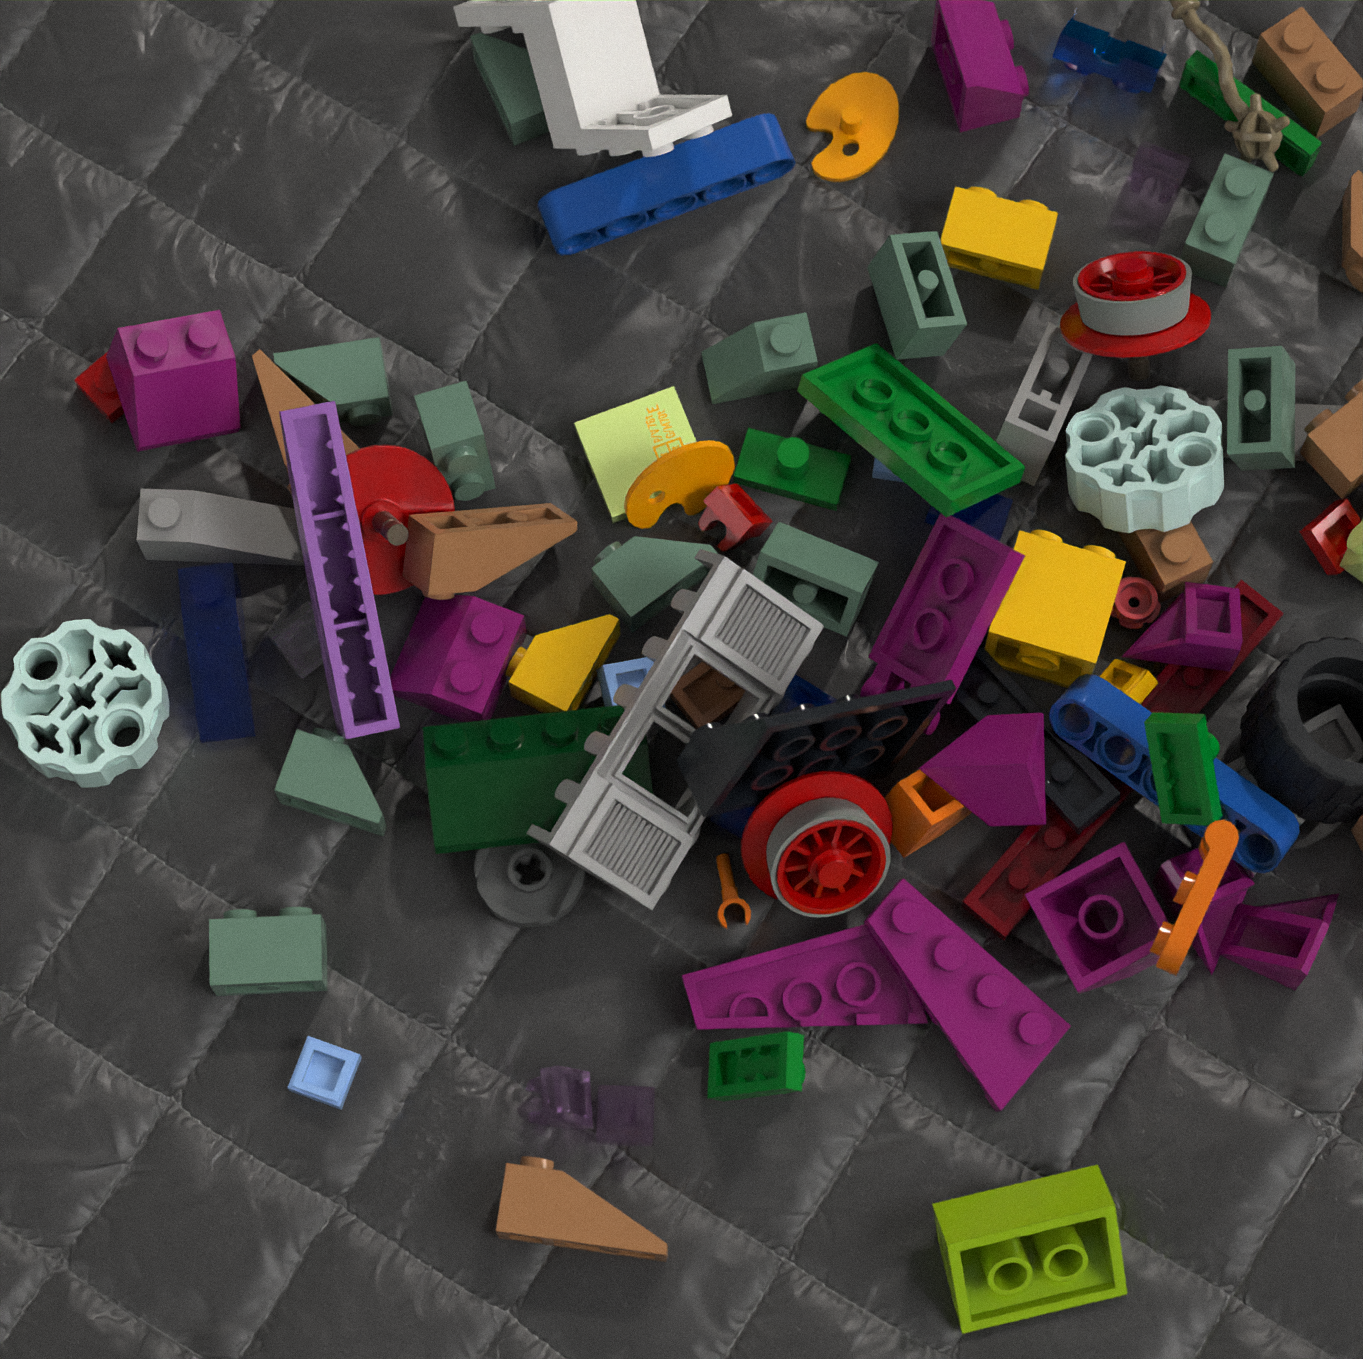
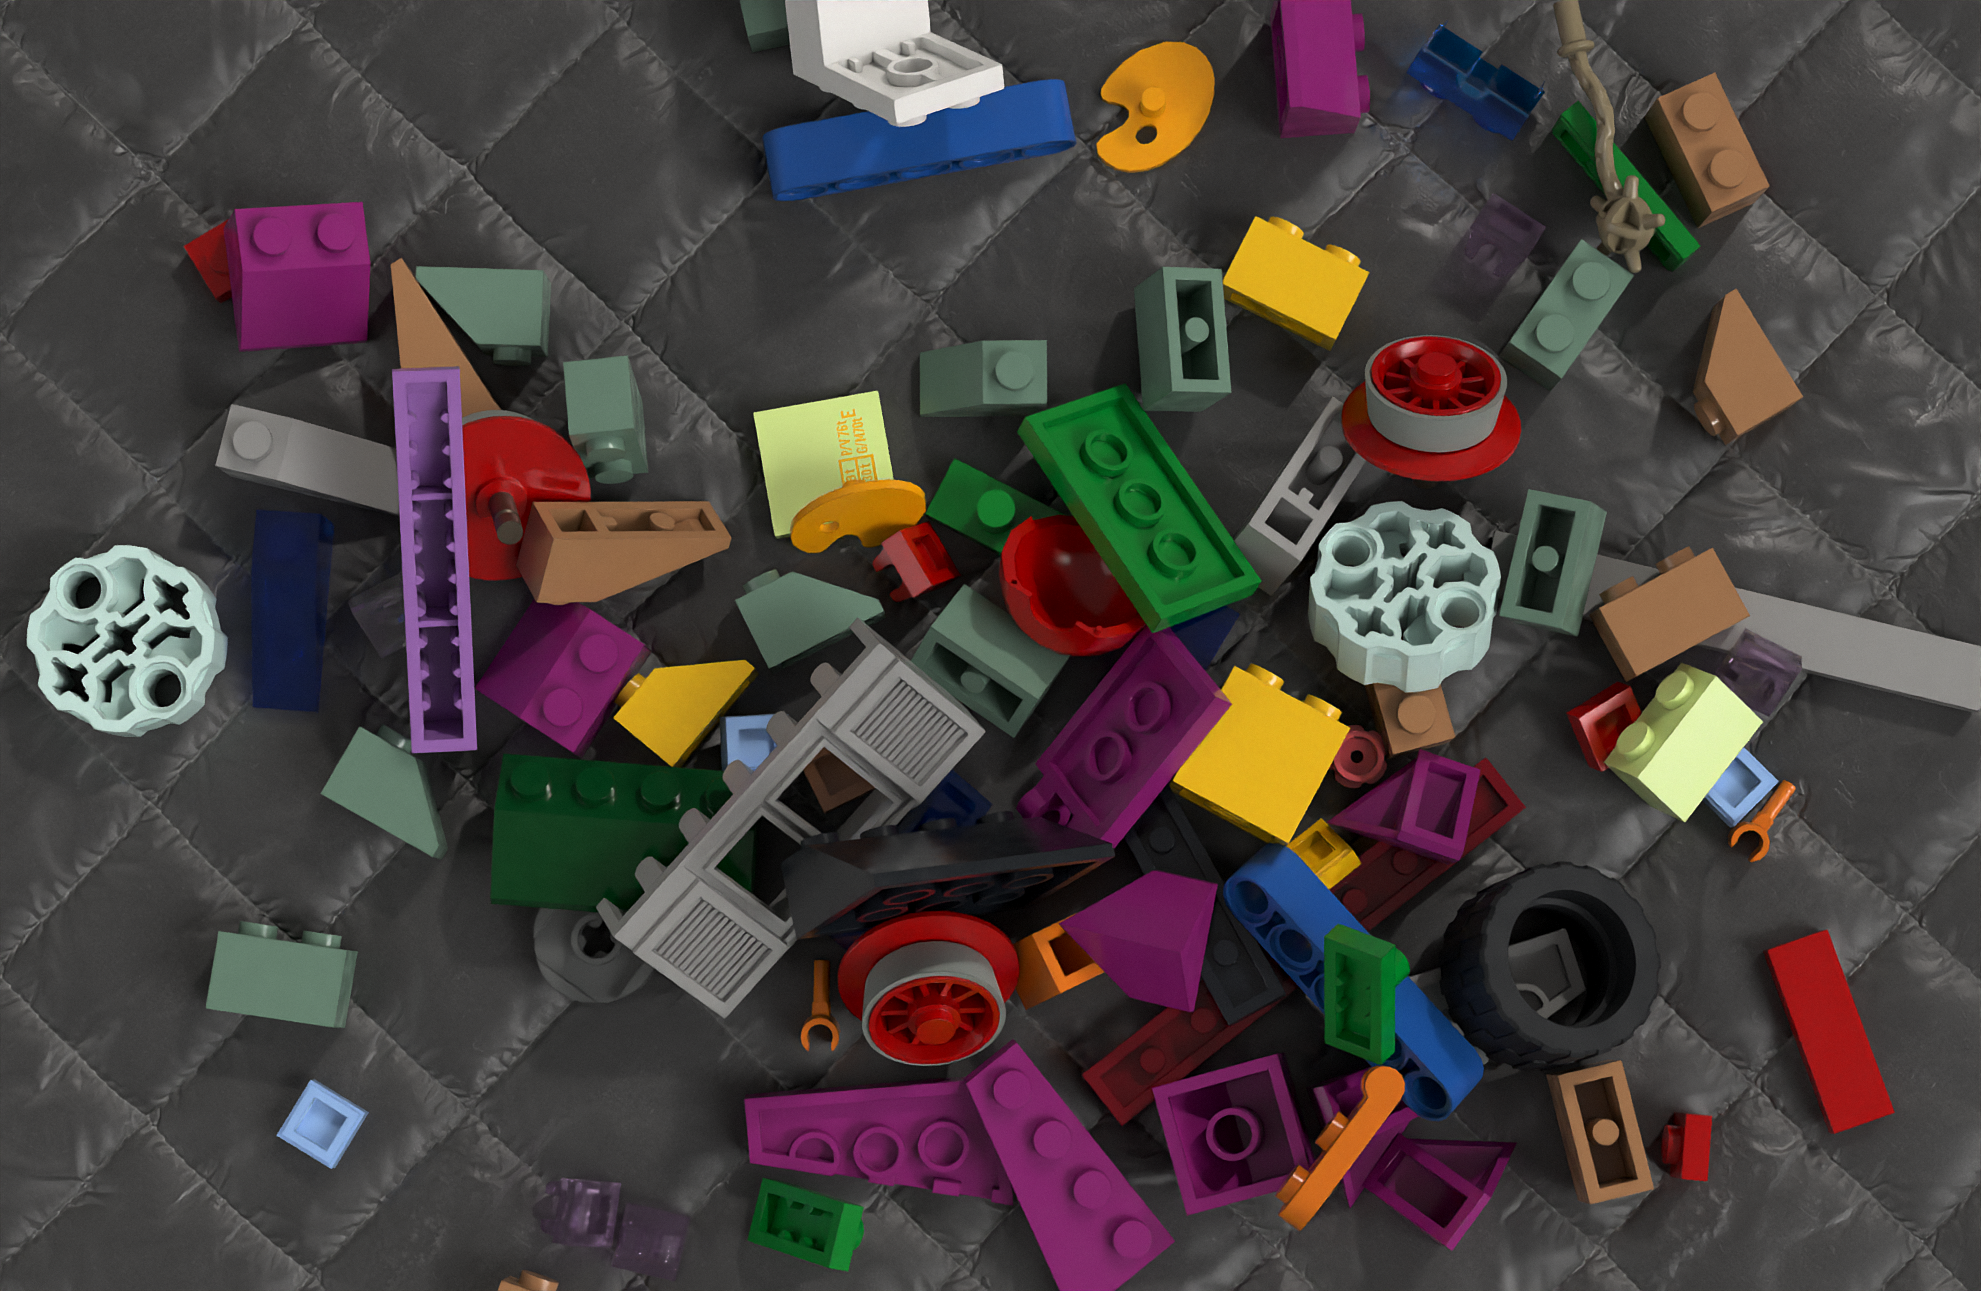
camera: 10 degrees right, 10 degrees up
(866, 505) = (1064, 590): none -> red cylinder

